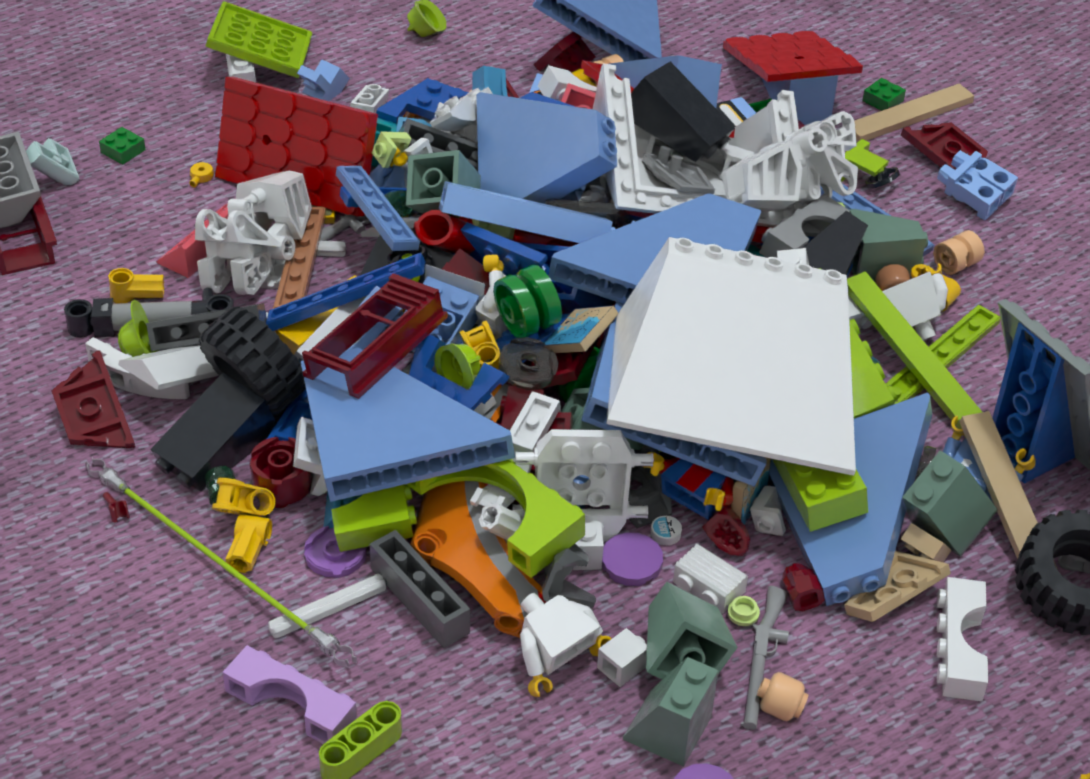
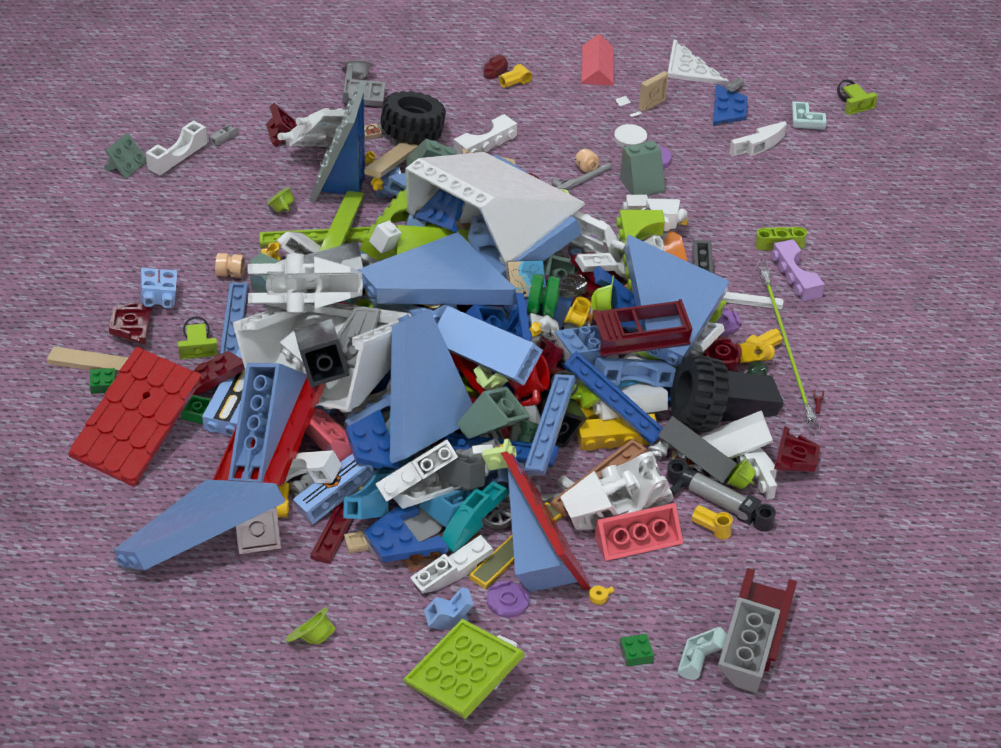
camera: 140 degrees left, 0 degrees up
(684, 628) = (606, 185): sand green slope -> none

